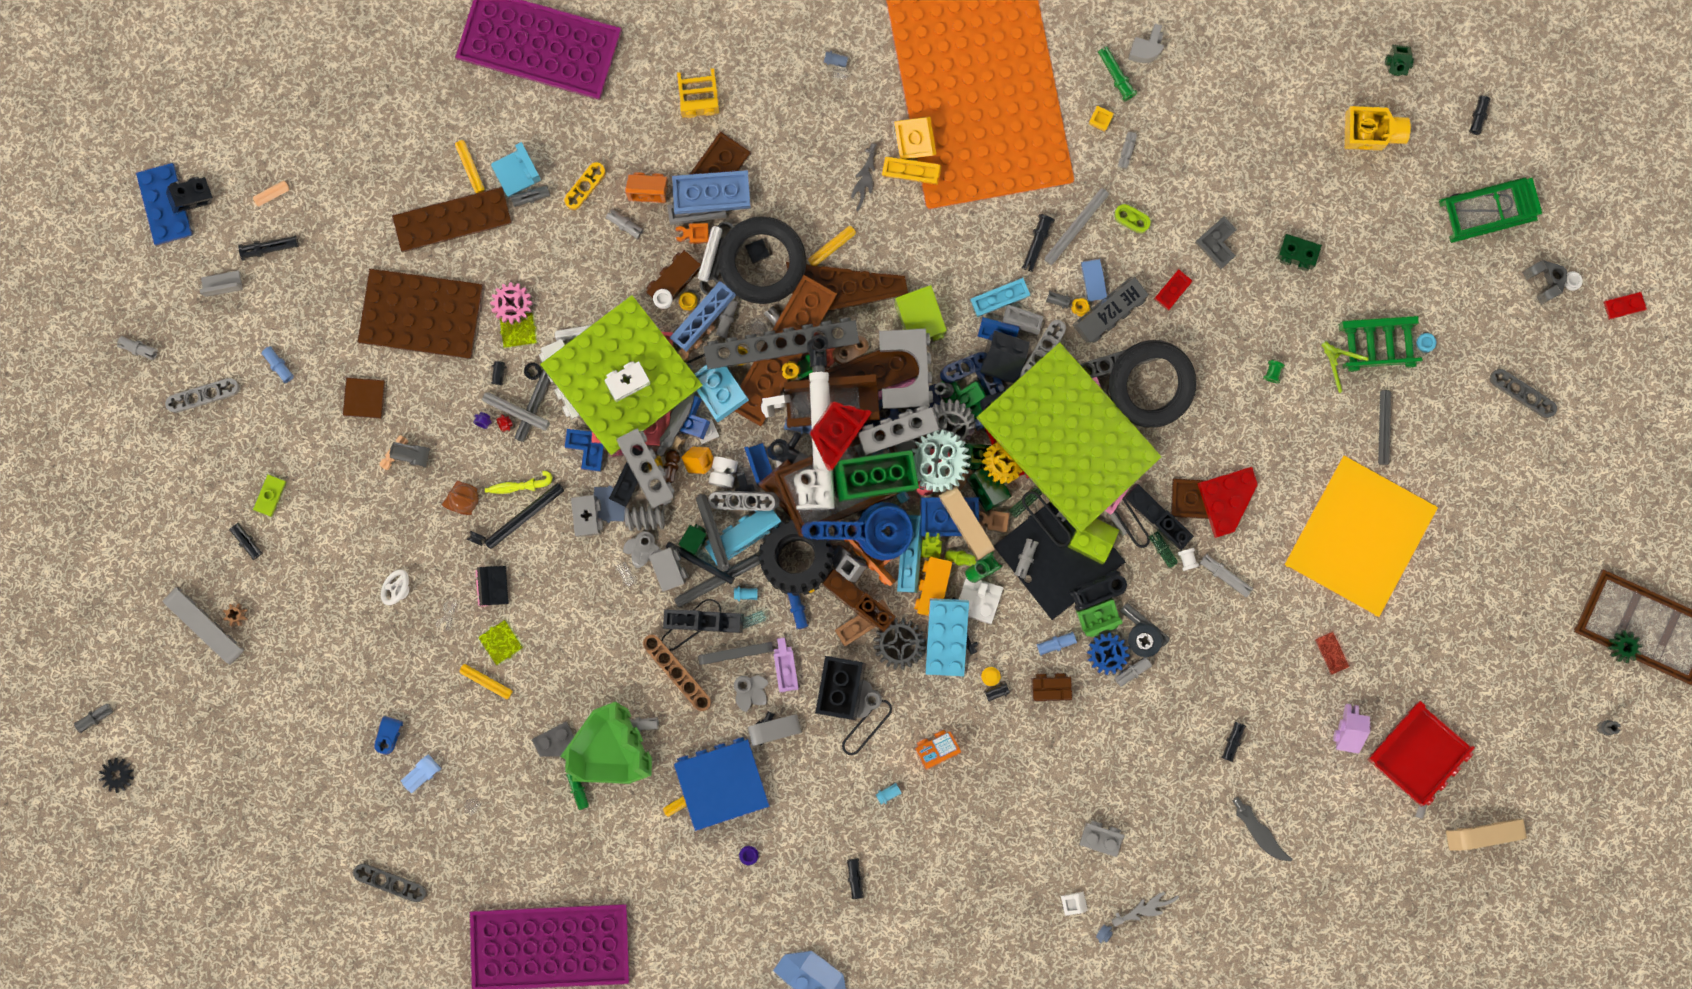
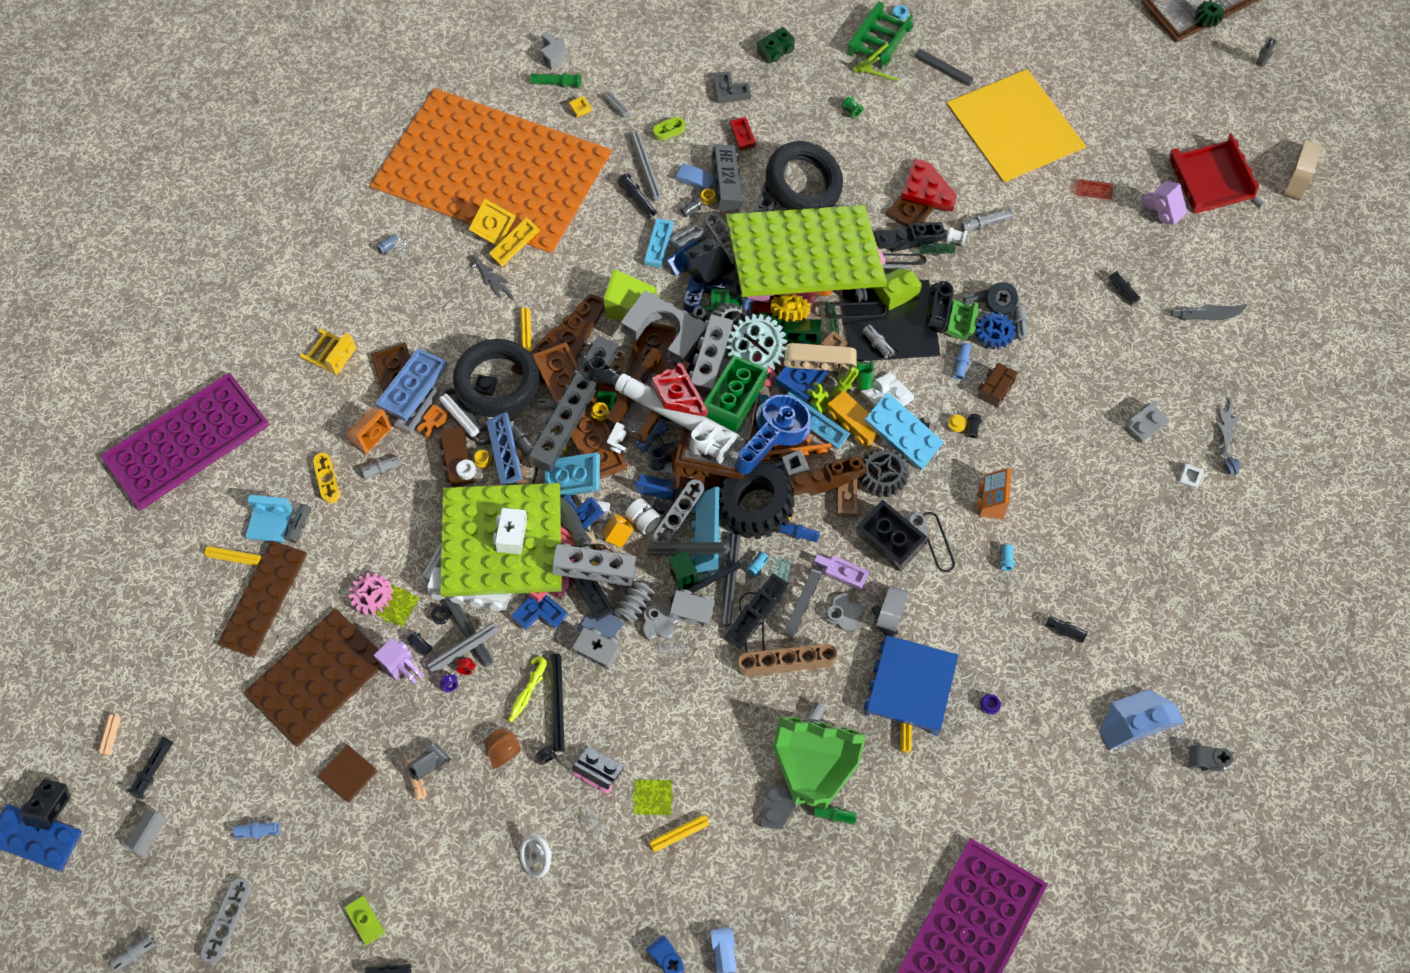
camera: 50 degrees left, 20 degrees down
(467, 368) = (396, 660): none -> lavender brick

